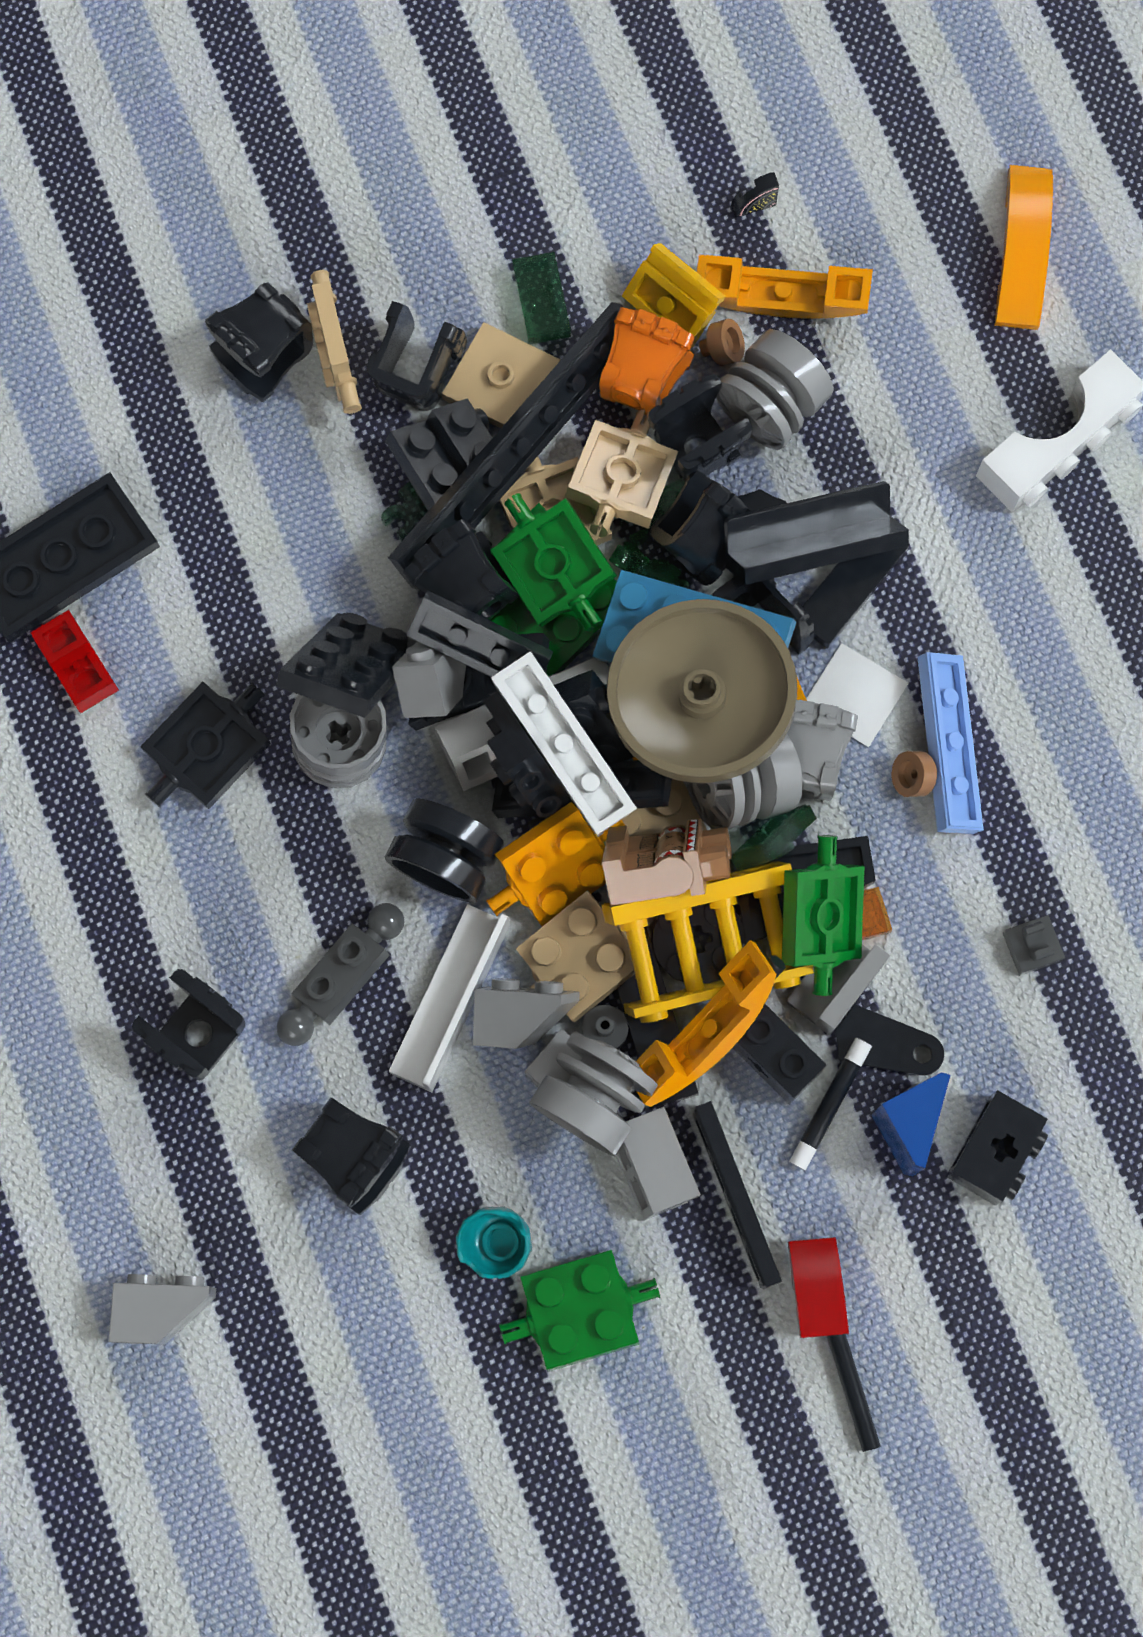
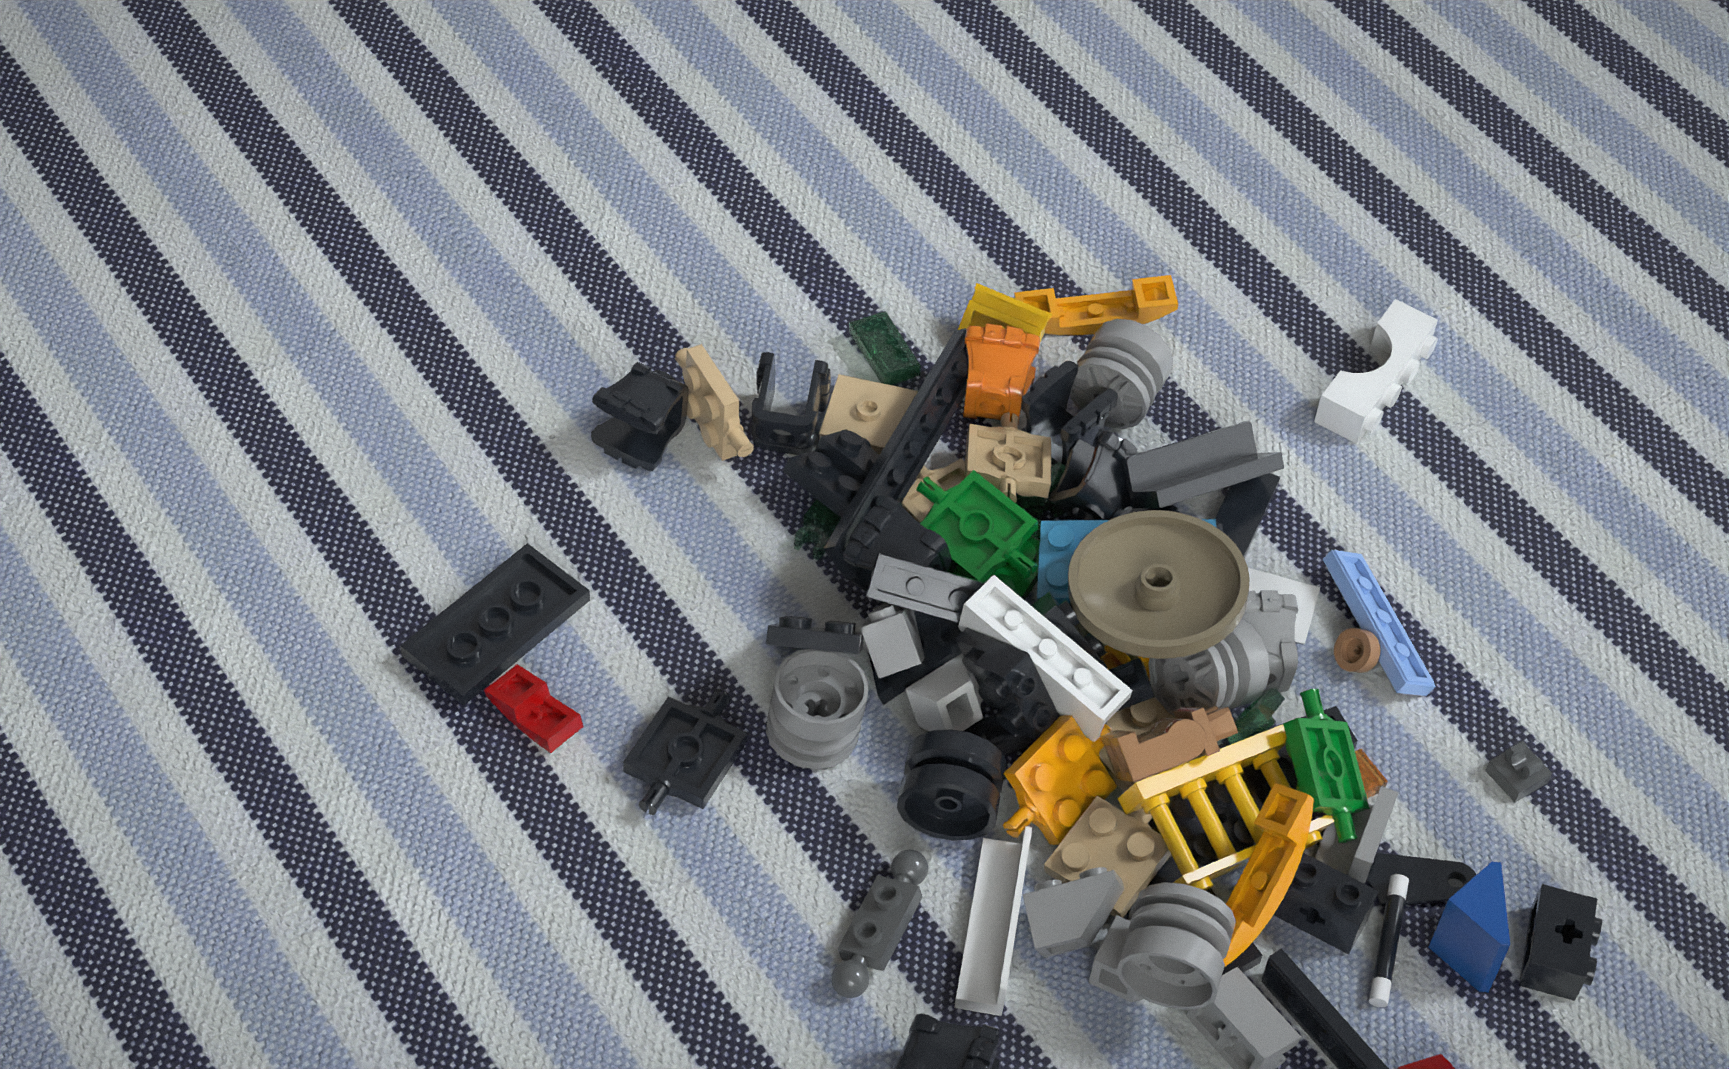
camera: 20 degrees left, 25 degrees down
(200, 1005) = (761, 985): black piece -> none
(723, 342) = (1057, 352): medium nougat tile -> none
(758, 198) = (1049, 247): black tile -> none
(1025, 247) = (1292, 248): light orange slope -> none

